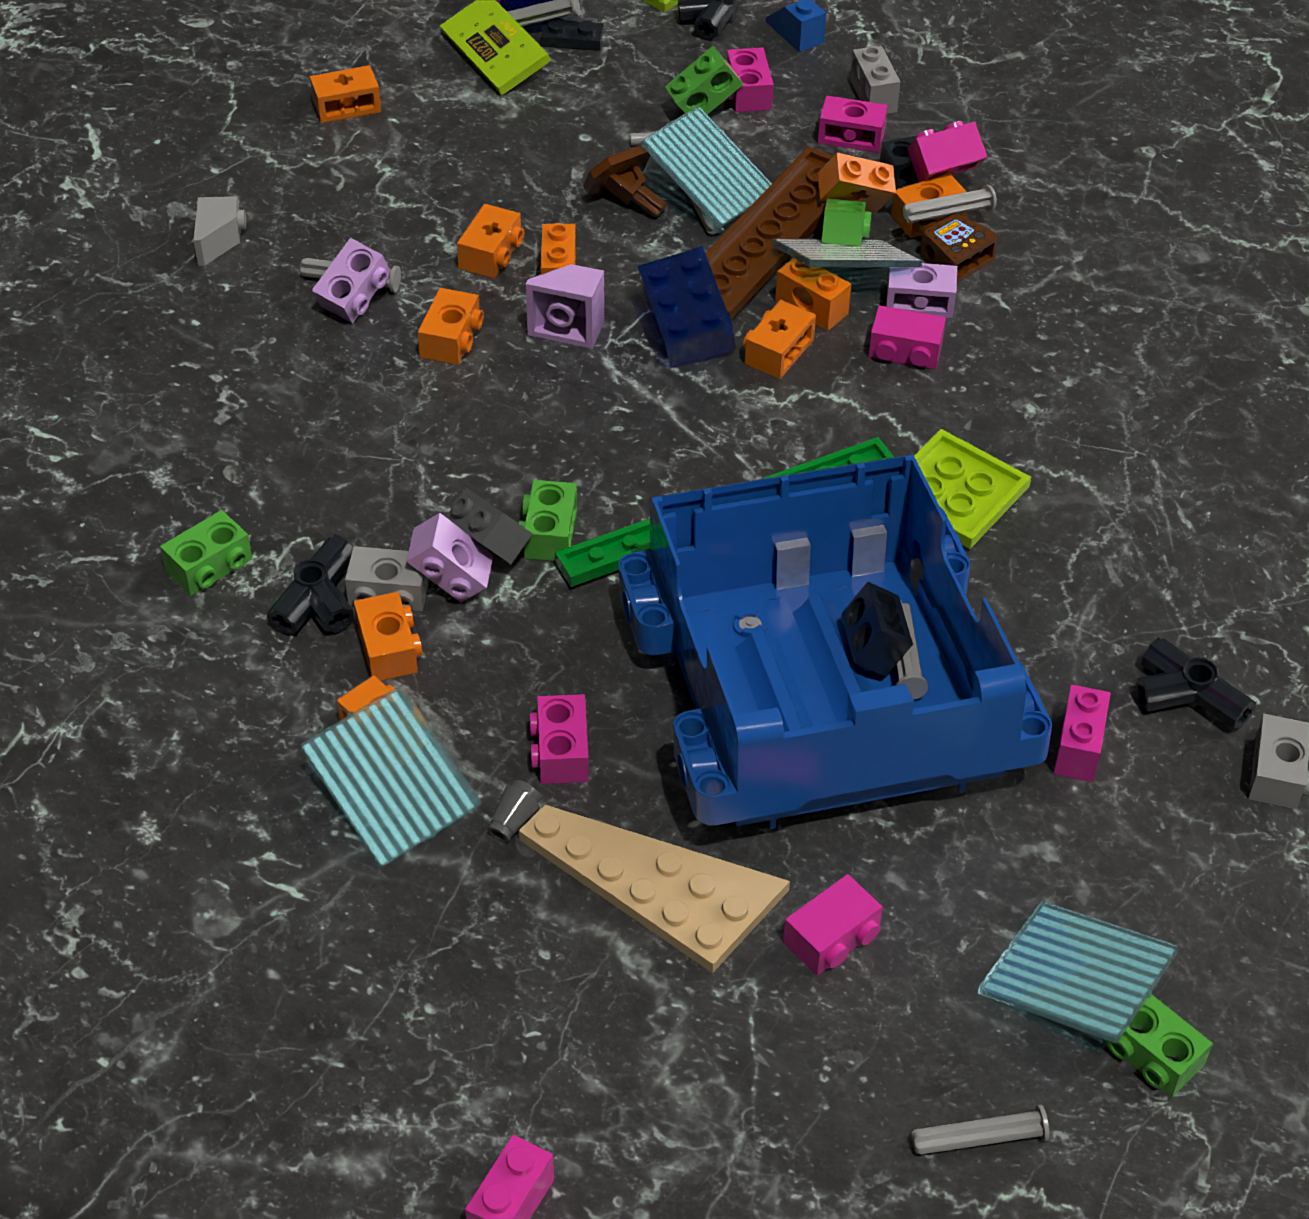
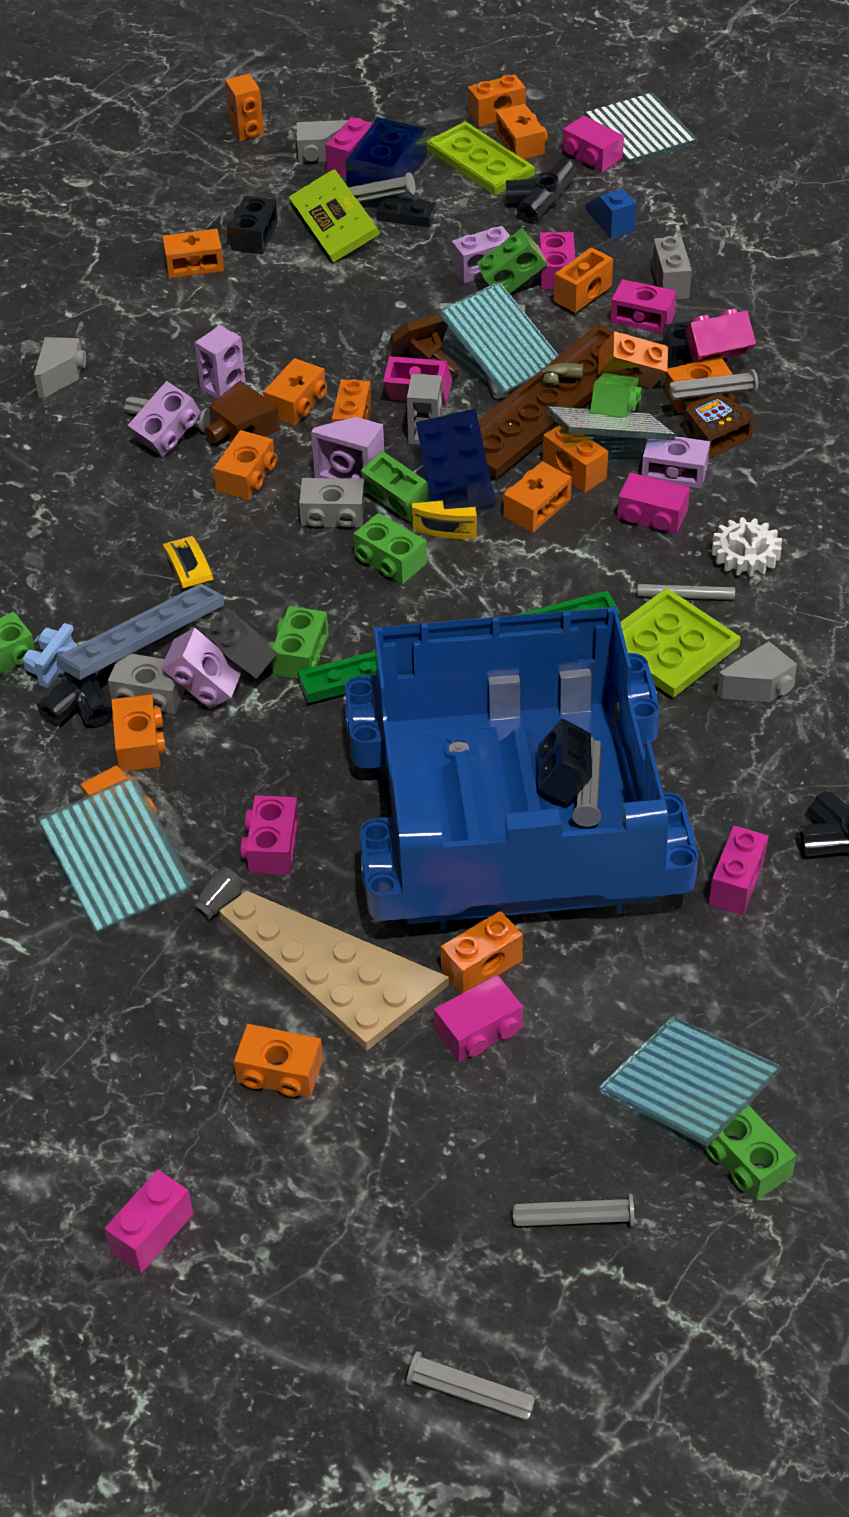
camera: 10 degrees right, 0 degrees up
(279, 557) = (45, 663): none -> light blue hips
(369, 522) = (139, 631): none -> sand blue tile
(402, 213) = (219, 361): none -> lavender brick
(406, 59) = (253, 225): none -> black brick
(406, 439) = (187, 562): none -> yellow slope
(435, 266) = (241, 410): none -> reddish brown torso
(556, 361) = (332, 502): none -> light grey brick
(606, 978) = (265, 1046): none -> orange brick
(625, 219) = (399, 373): none -> dark pink brick
(625, 338) = (394, 485): none -> bright green brick
(630, 407) = (390, 548): none -> bright green brick
(639, 245) = (423, 402): none -> light grey brick
(658, 71) = (472, 248): none -> lavender brick
(674, 373) = (434, 520): none -> yellow slope
(781, 198) = (562, 370): none -> olive arm
(783, 98) = (583, 279): none -> orange brick
(822, 851) = (482, 952): none -> orange brick
(962, 431) = (688, 592): none -> light grey bar
(1016, 378) = (746, 546): none -> white gear
(1059, 518) = (758, 676): none -> light grey slope

